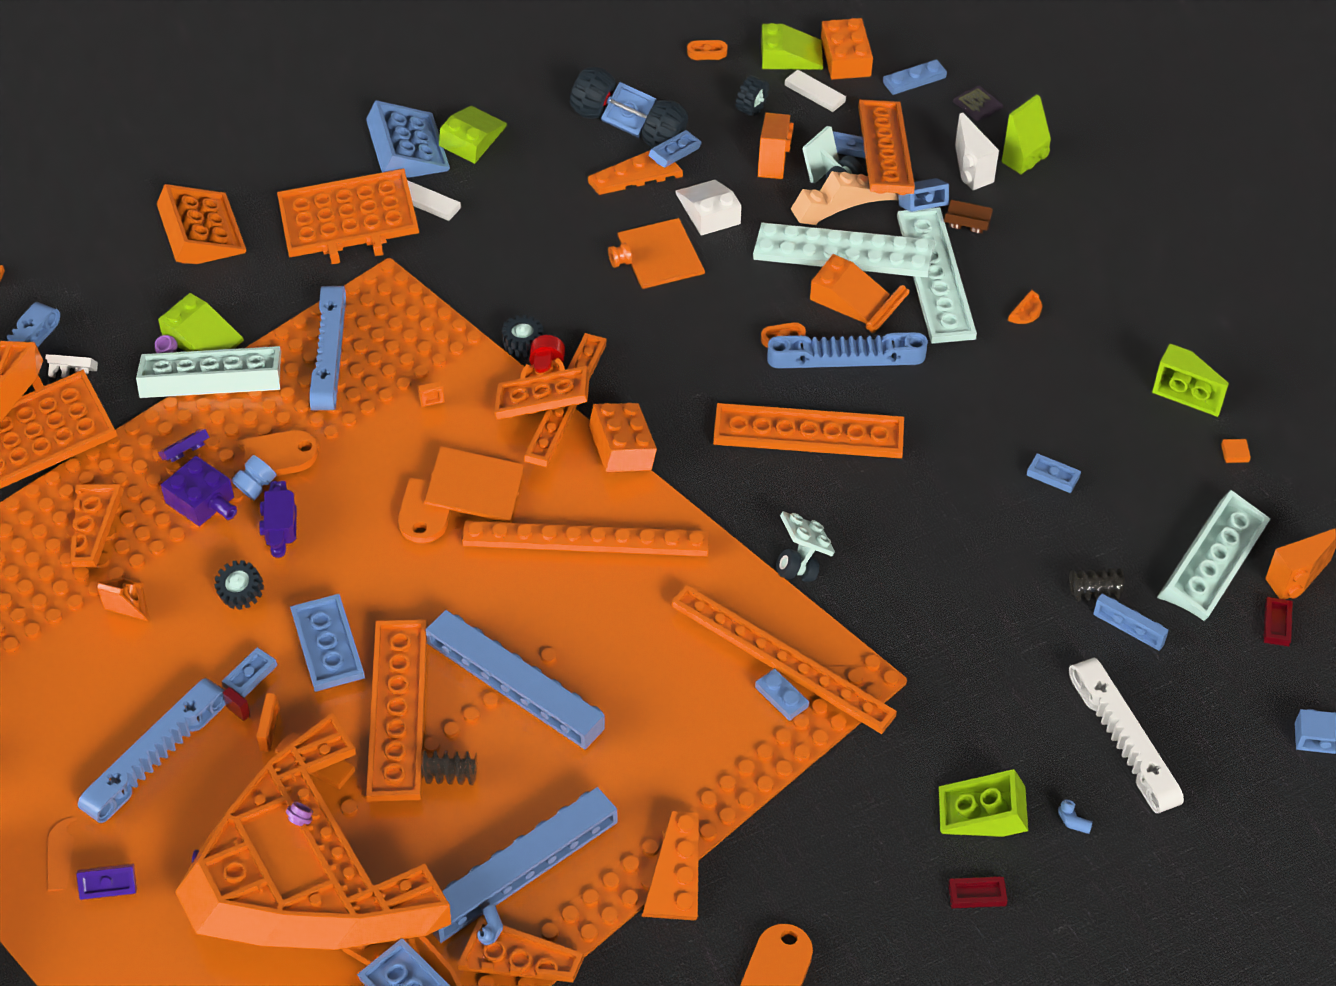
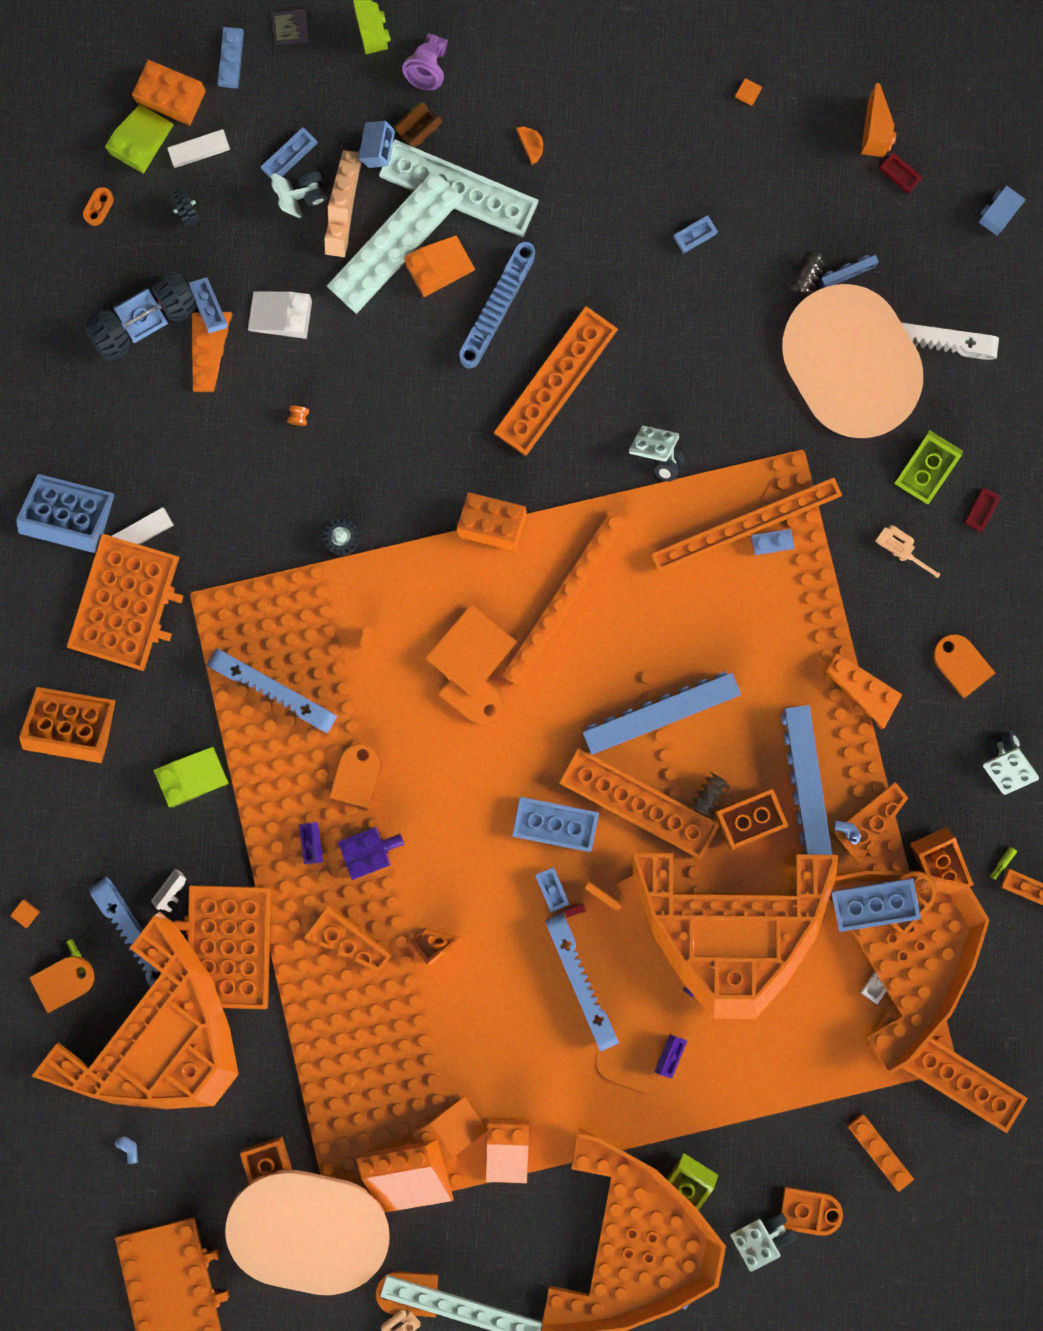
camera: 60 degrees left, 35 degrees up
(165, 344) = (190, 810): medium lavender plate -> none
(209, 372) = (241, 790): light aqua arch -> none
(239, 584) = (471, 862): black wheel -> none
(253, 477) = (380, 811): medium blue wheel -> none
(279, 518) = (422, 804): dark purple hinge -> none
(299, 814) = (717, 917): medium lavender plate -> none
(444, 819) = (751, 818): none -> orange brick
(470, 133) = (85, 454): lime slope -> none
(544, 383) = (411, 552): orange plate -> none
(556, 420) = (428, 540): orange plate -> none
(661, 253) = (308, 380): orange piece -> none
(774, 145) = (247, 221): orange wedge -> none
(787, 329) = (453, 343): orange plate -> none
(867, 829) = (899, 549): none -> light nougat piece
(886, 147) = (312, 140): orange plate -> none
(887, 309) = (471, 247): orange axle -> none
(975, 154) = (358, 76): white slope -> none
(1028, 189) = (422, 67): none -> medium lavender piece
(1037, 668) = (852, 361): none -> light nougat tile
(1070, 818) = (967, 416): medium blue arm -> none
(1190, 381) = (677, 80): lime slope -> none
(1215, 556) = (826, 175): light aqua arch -> none

